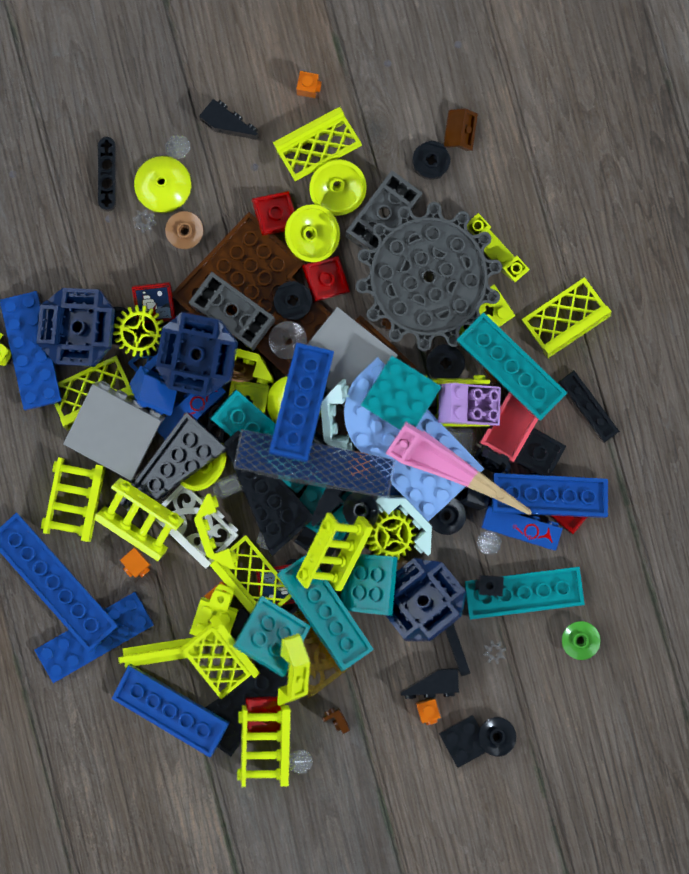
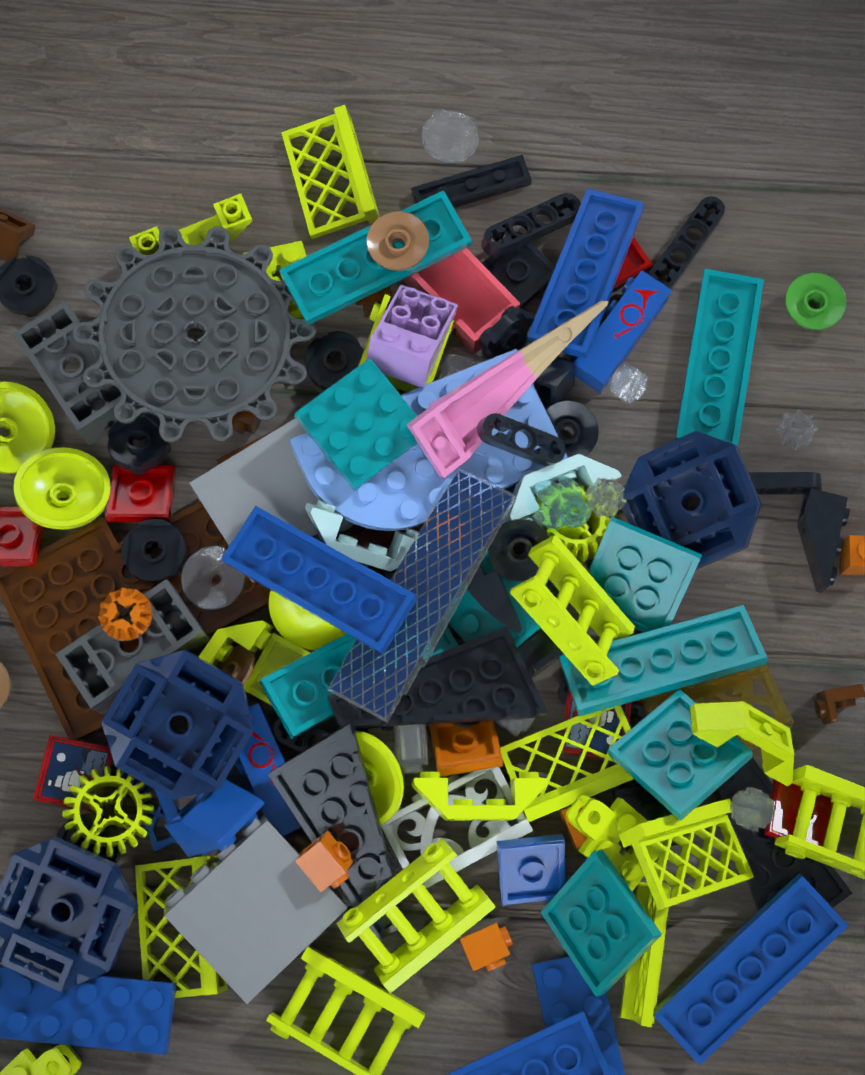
camera: 70 degrees left, 10 degrees down
(149, 460) = (325, 862): none -> orange brick
(166, 620) = (600, 923): none -> teal plate
(184, 575) = (531, 869): none -> plate
(238, 516) = (465, 748): none -> orange plate
(247, 311) = (122, 629): none -> orange gear
(256, 686) = (752, 809): none -> clear gear
(345, 270) = (141, 458): none -> black plate
(396, 522) = (558, 501): none -> clear light blue plate
(413, 554) = (605, 497): none -> clear gear
(419, 477) = (507, 441): none -> black beam
(489, 585) = (696, 398): black brick -> none
(523, 367) = (395, 228): none -> medium nougat dish
(570, 454) = (529, 221): none -> black beam
(593, 552) = (685, 244): none -> black beam
(617, 382) = (450, 136): none -> clear dish

